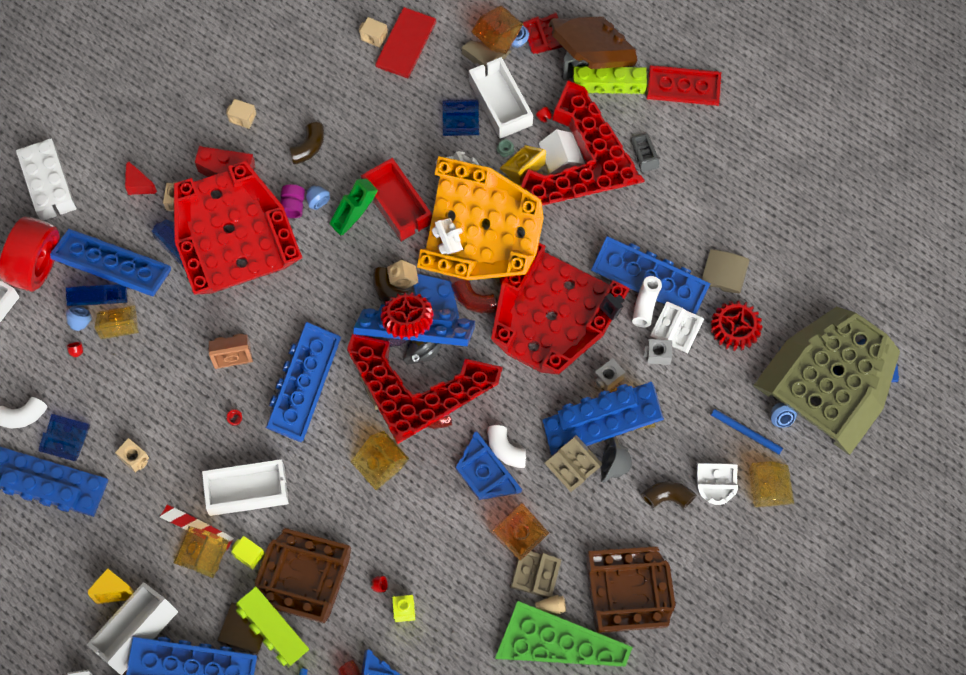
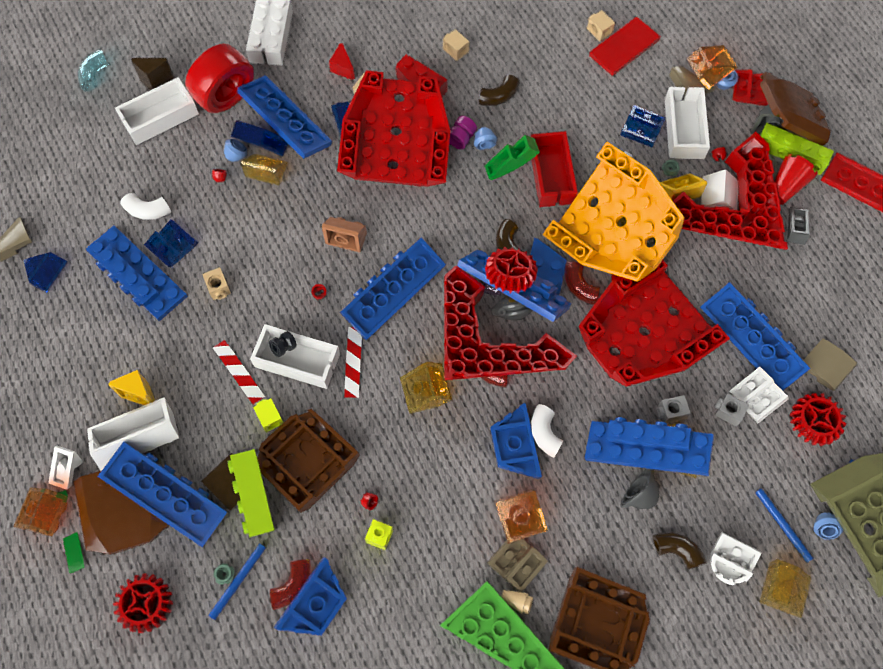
camera: 25 degrees right, 0 degrees up
(201, 551) = (229, 395): clear yellow slope -> none
(229, 482) = (284, 343): none -> black wheel
(300, 469) = (353, 360): none -> sticker
(402, 274) = (526, 235): tan brick -> none
(449, 236) = (583, 218): white hips -> none
(573, 463) = (601, 475): dark tan slope -> none
(612, 305) = (706, 346): black tile -> none
(620, 110) = (793, 177): none -> red cone
(646, 301) = (740, 358): white cylinder -> none

